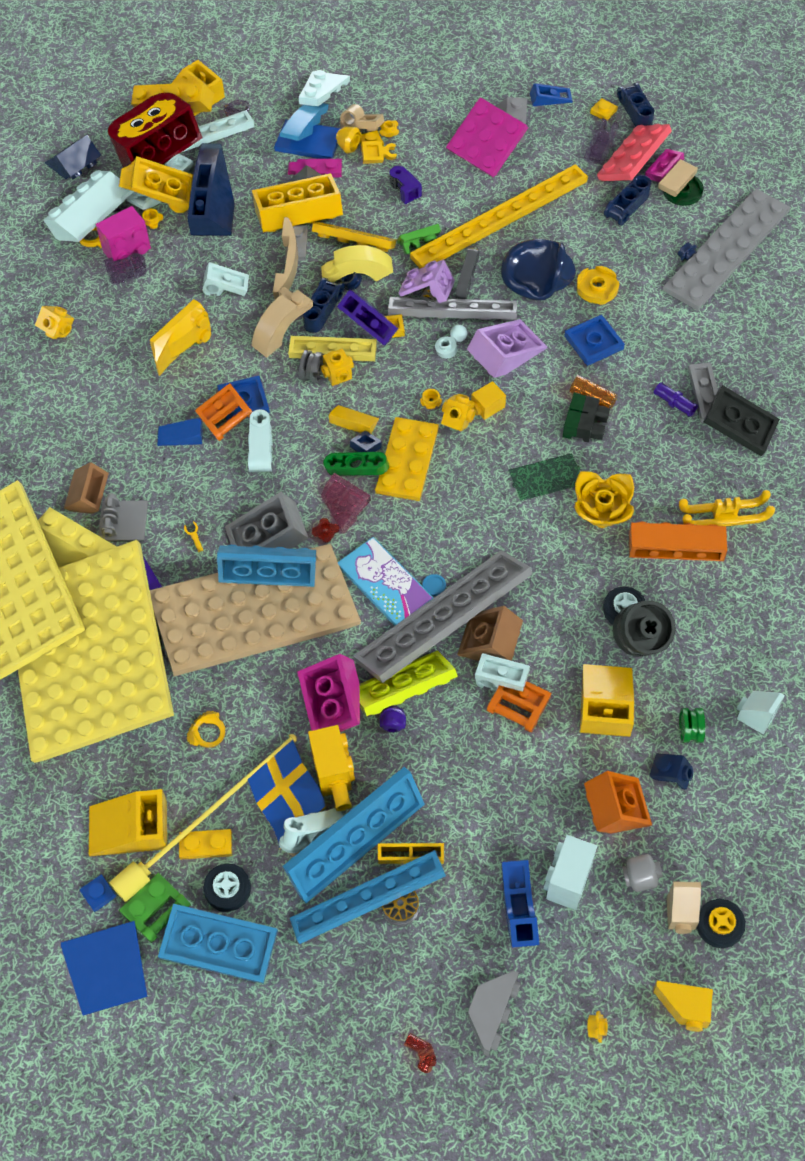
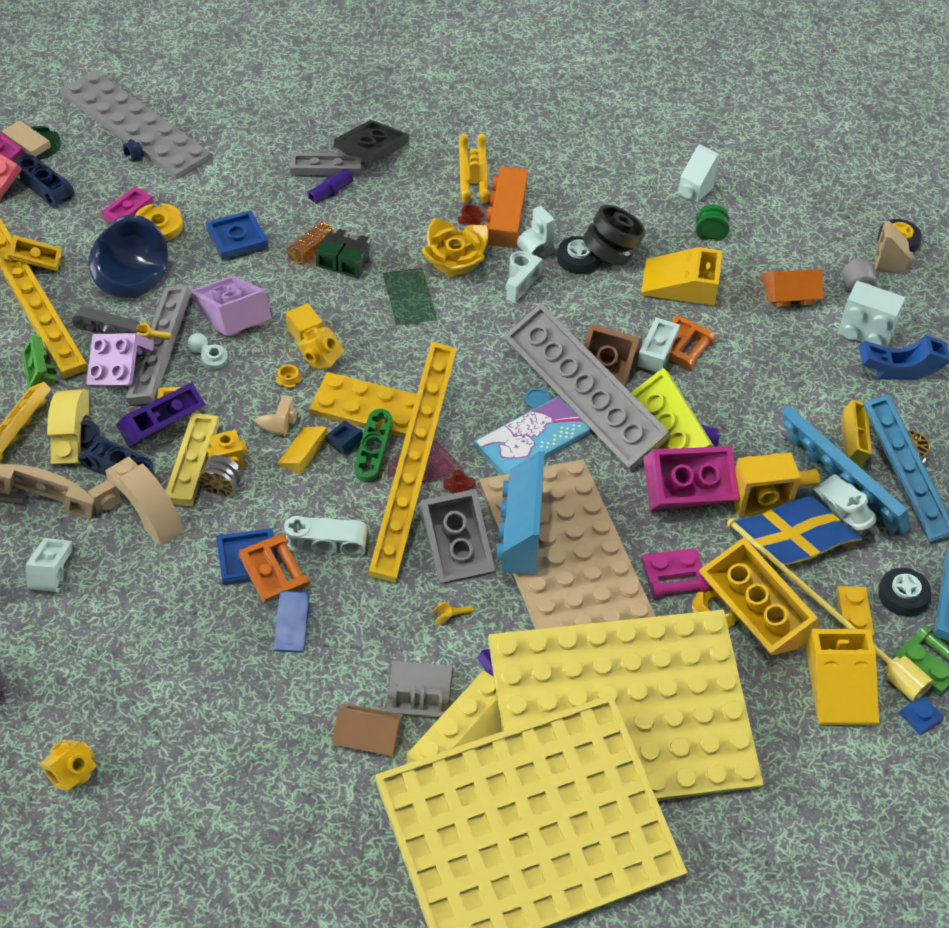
camera: 90 degrees left, 10 degrees down
(179, 334) = (143, 608): yellow slope -> none
(205, 758) = (760, 598): none -> yellow slope
(249, 695) = (673, 566): none -> dark pink plate
(338, 487) = (412, 463): none -> yellow plate
(381, 399) = (279, 422): none -> tan plate
(454, 297) = (144, 327): none -> yellow hand
(537, 211) = (34, 253): none -> yellow slope
(580, 561) = (523, 272): none -> light aqua plate
(611, 259) = (127, 204): none -> dark pink plate
(633, 567) = (539, 238): none -> light aqua plate
(664, 509) = (470, 215): none -> clear red plate
(672, 769) = (754, 246): dark blue bracket -> none

